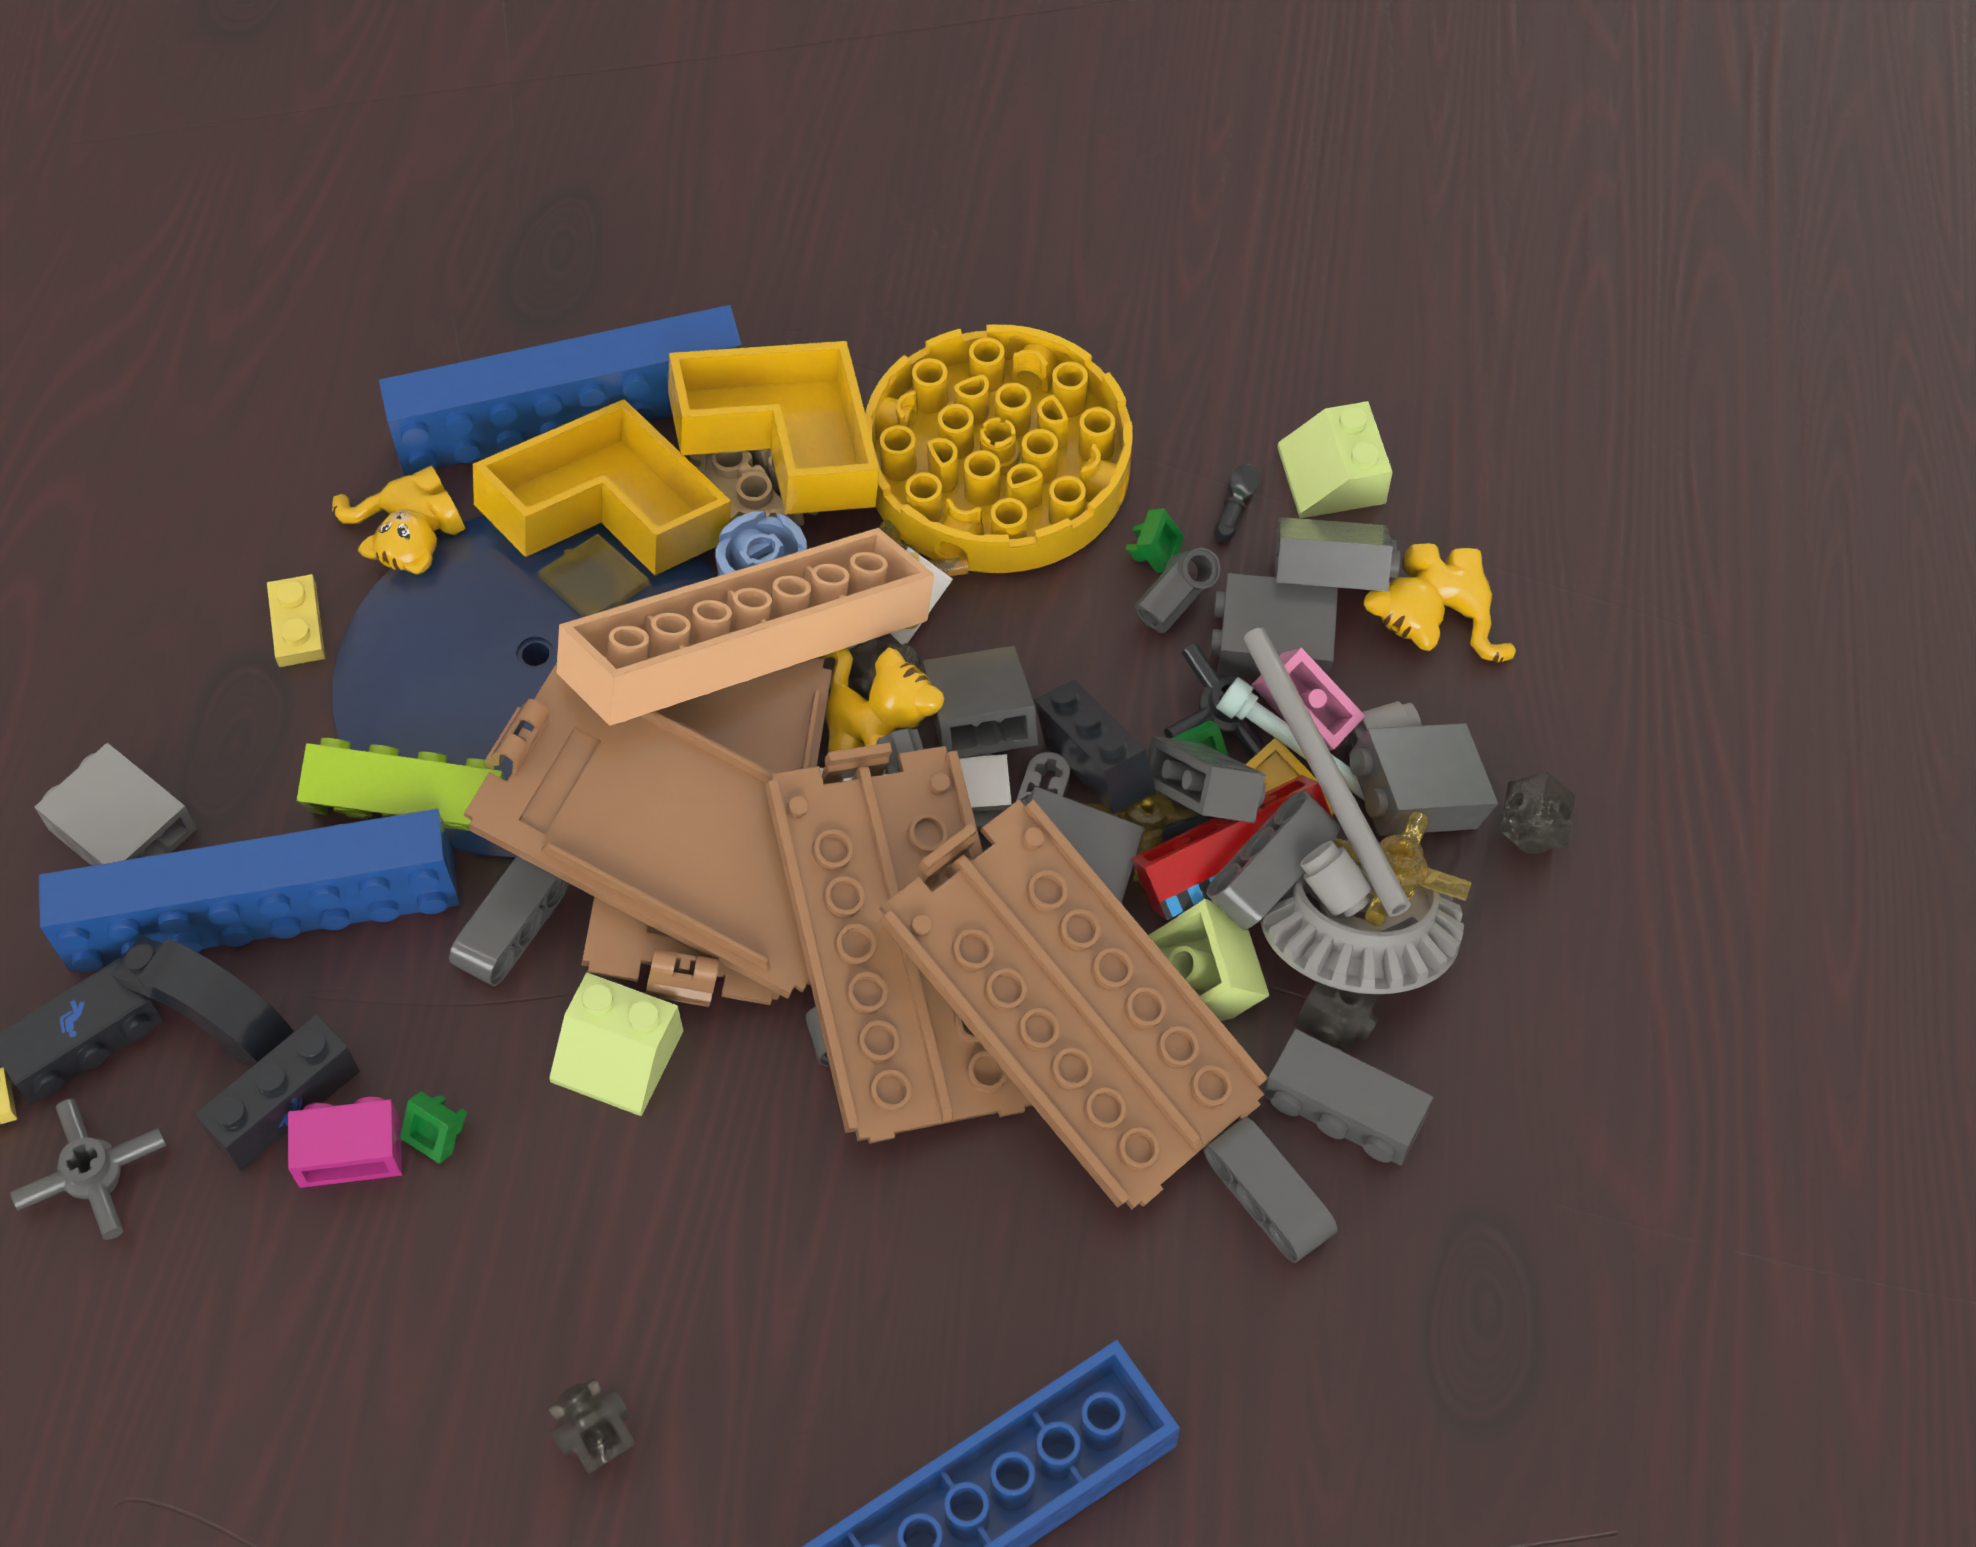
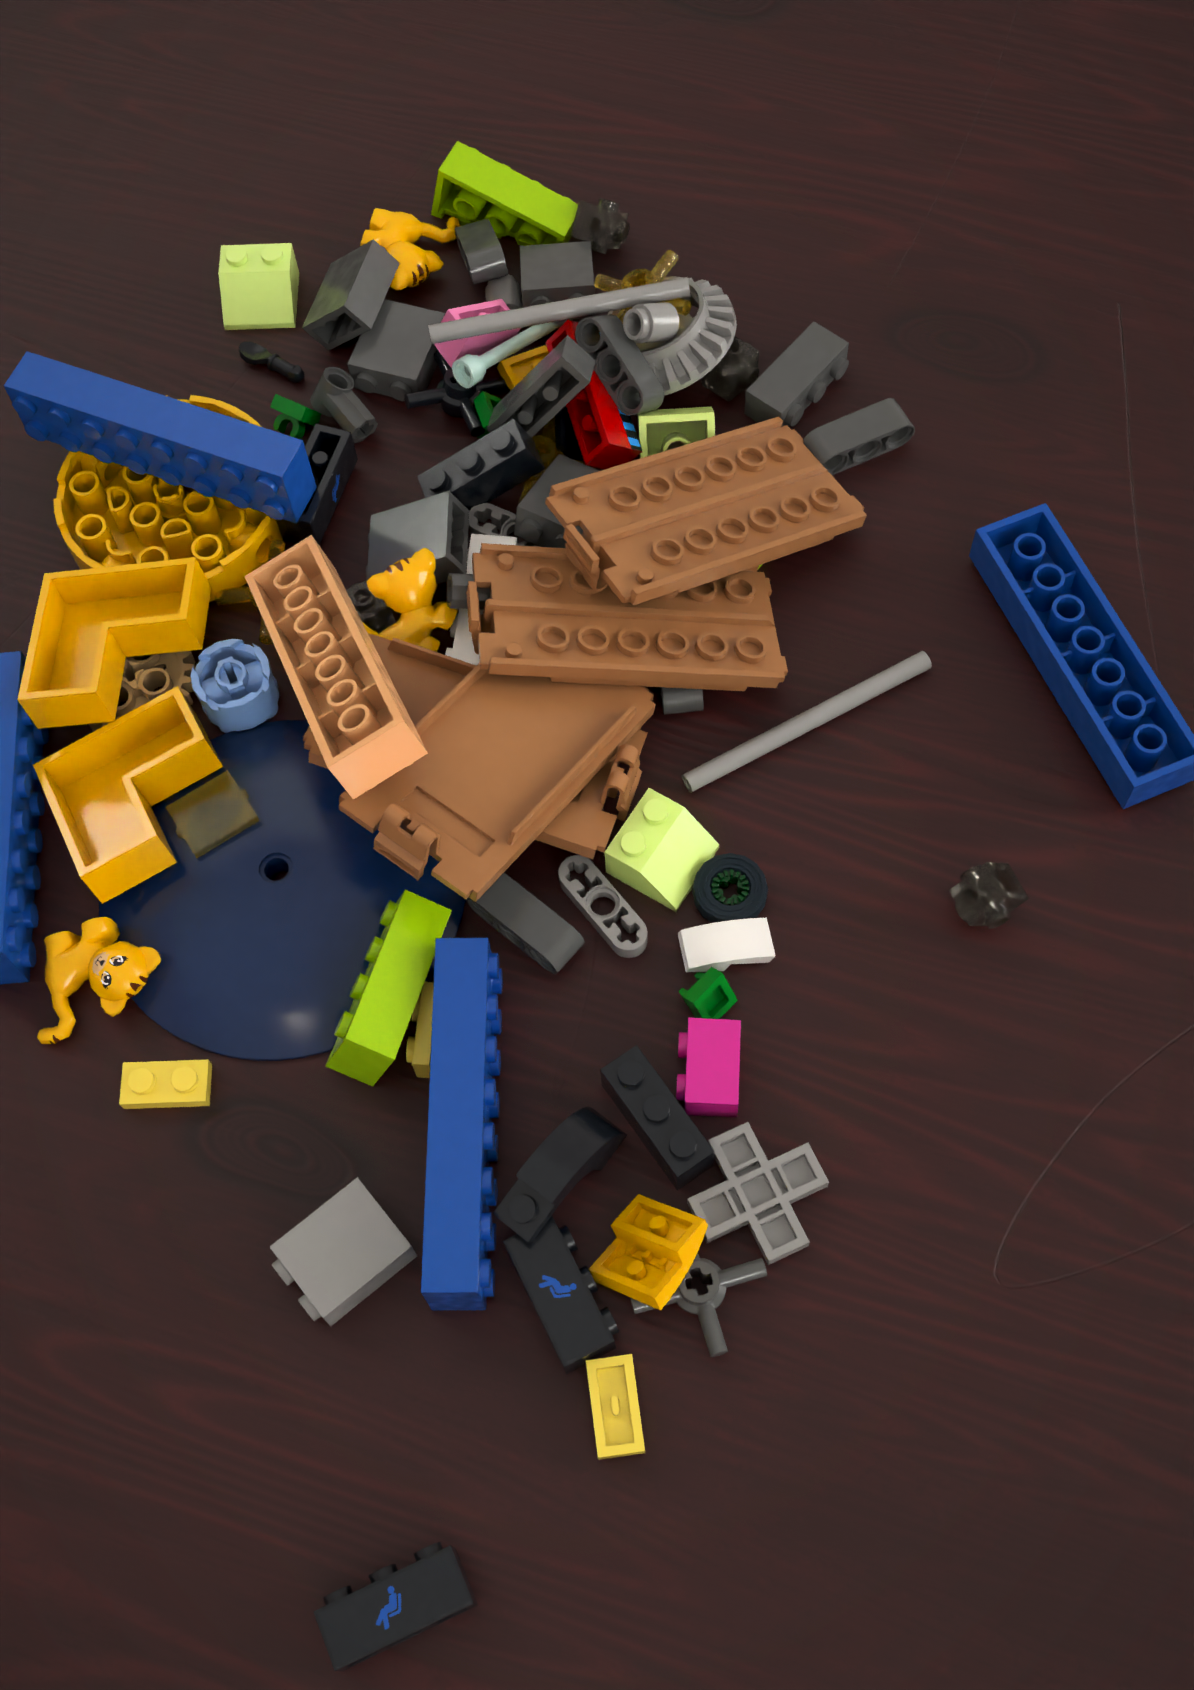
camera: 75 degrees left, 5 degrees up
(118, 1107) = (650, 1251): none -> yellow slope
(200, 1217) = (759, 1192): none -> light grey plate
(504, 1138) = (726, 944): none -> white slope
(507, 1012) = (630, 921): none -> light grey beam
(565, 1112) = (721, 872): none -> black bush
(828, 1193) = (806, 721): none -> light grey piece
(1030, 401) = (162, 437): none -> blue brick
(1047, 582) = (332, 463): none -> black brick
(1445, 681) = (481, 251): none -> dark grey beam
(1542, 690) = (480, 188): none -> lime wedge

